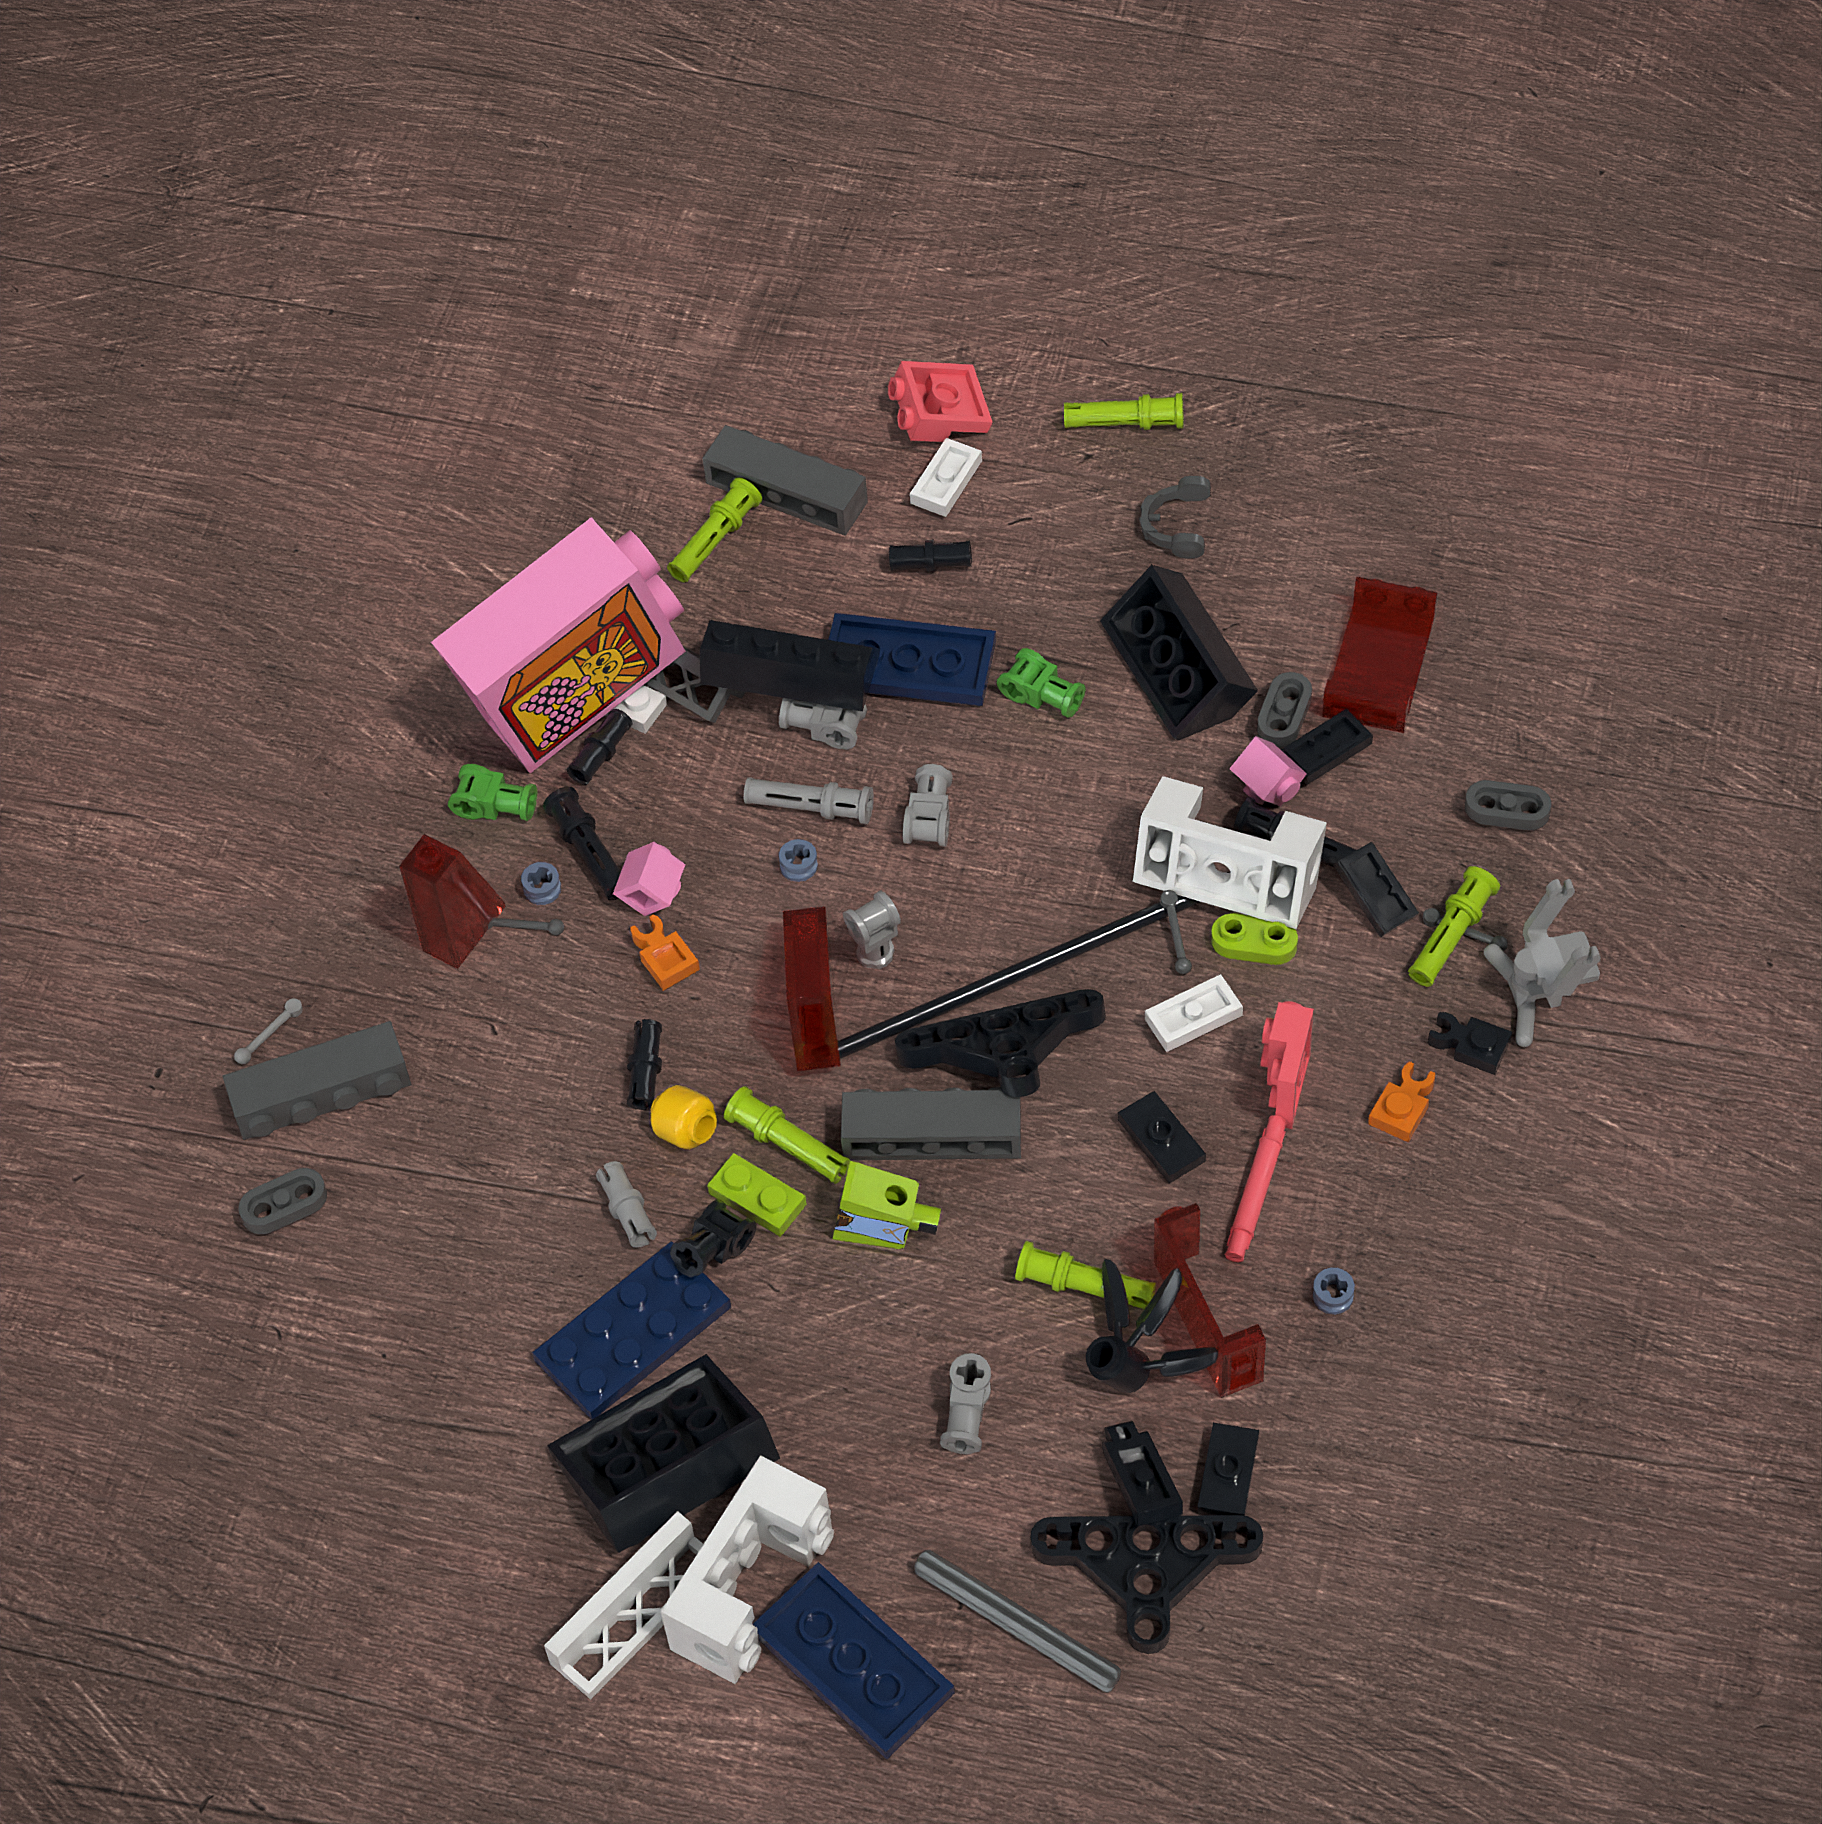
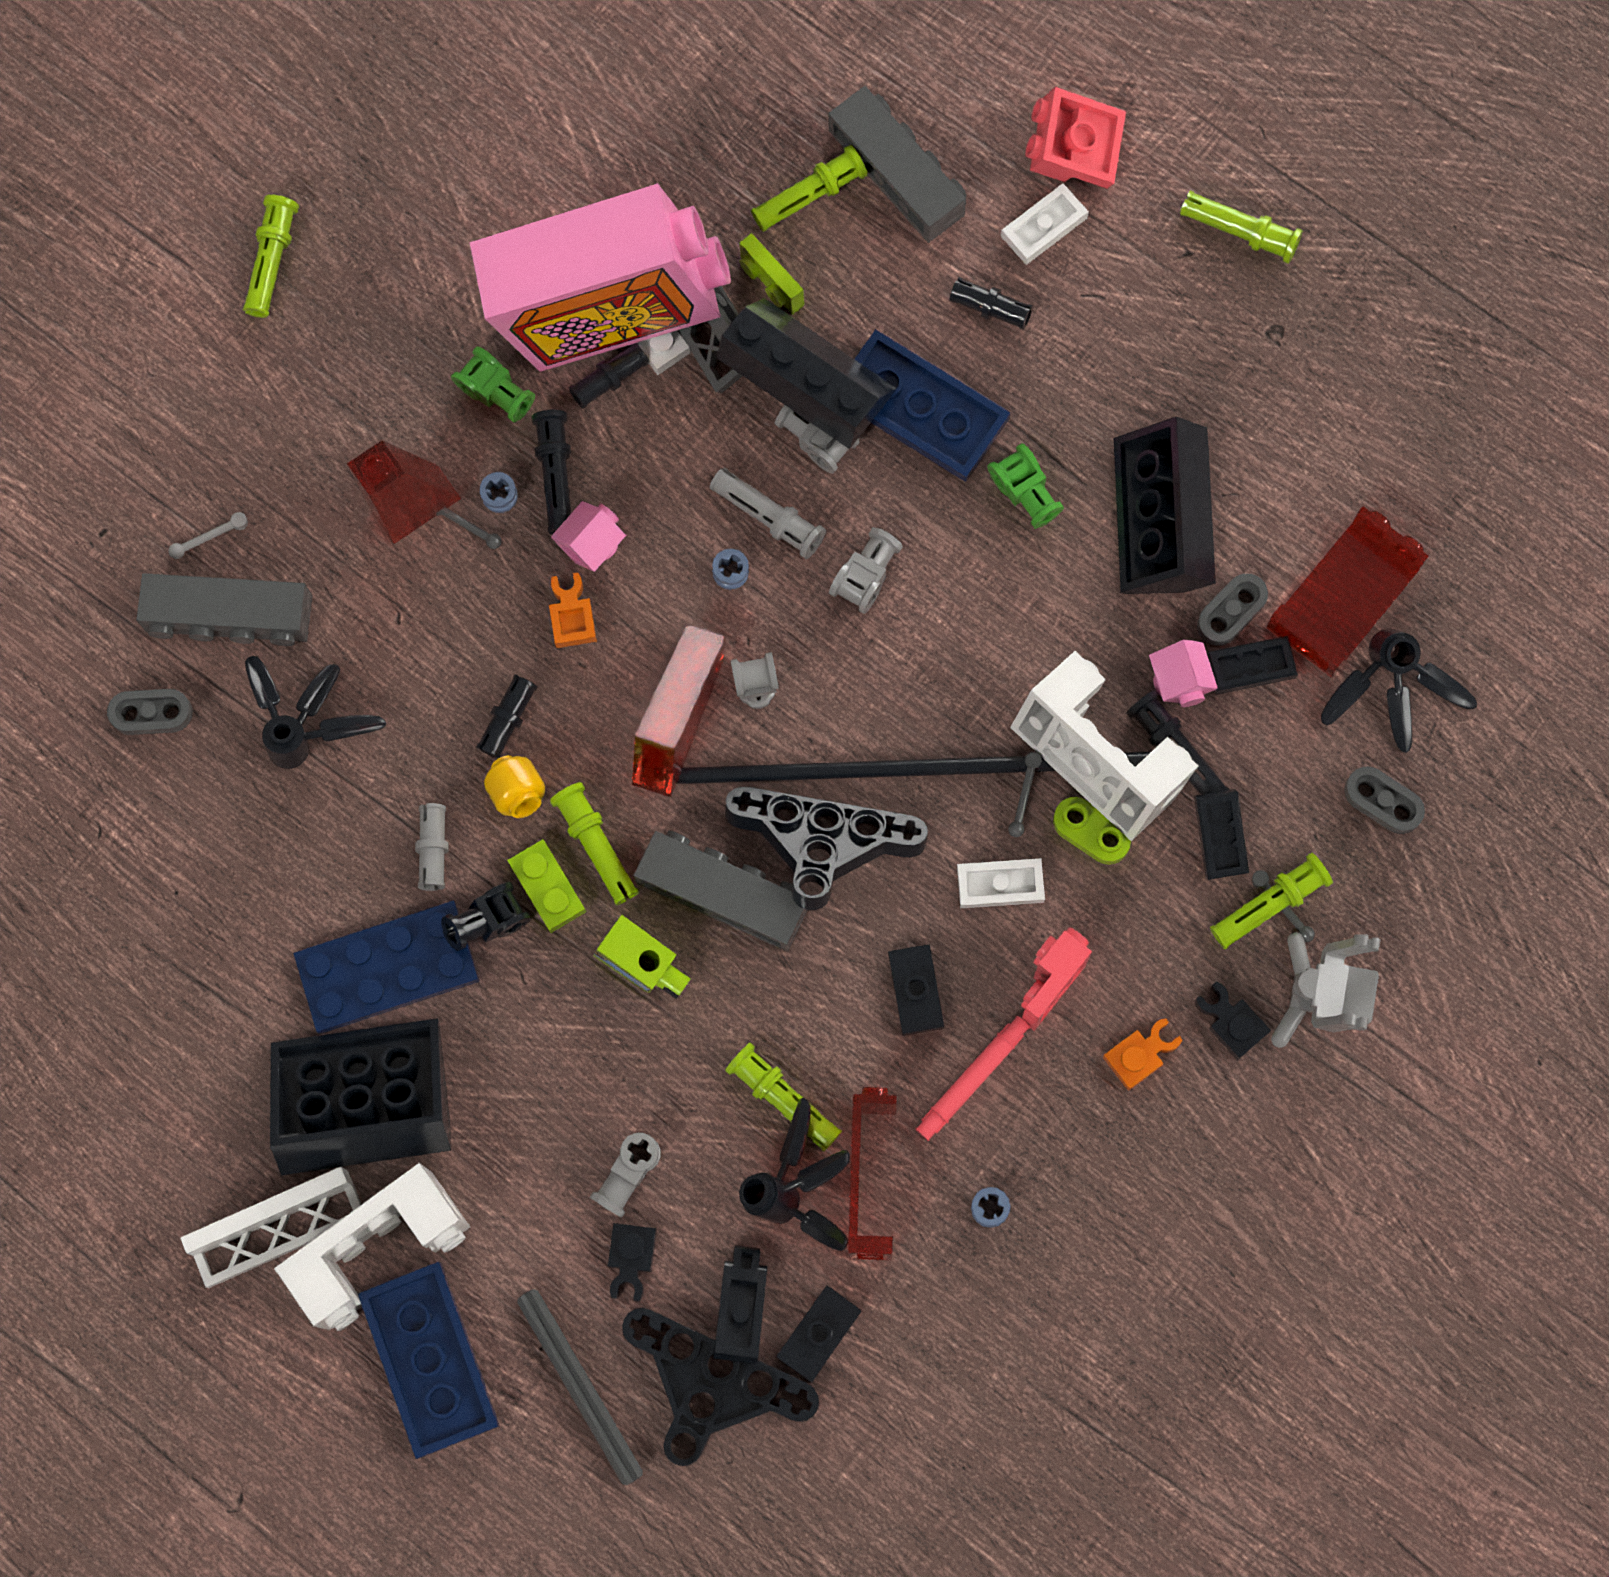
camera: 25 degrees right, 20 degrees up
(215, 758) = (272, 239): none -> lime pin
(436, 1155) = (284, 735): none -> black plant
(707, 603) = (779, 283): none -> lime plate
(1007, 1481) = (631, 1252): none -> black plate
(1182, 544) = (1258, 333): dark grey piece -> none
(1449, 683) = (1402, 660): none -> black plant

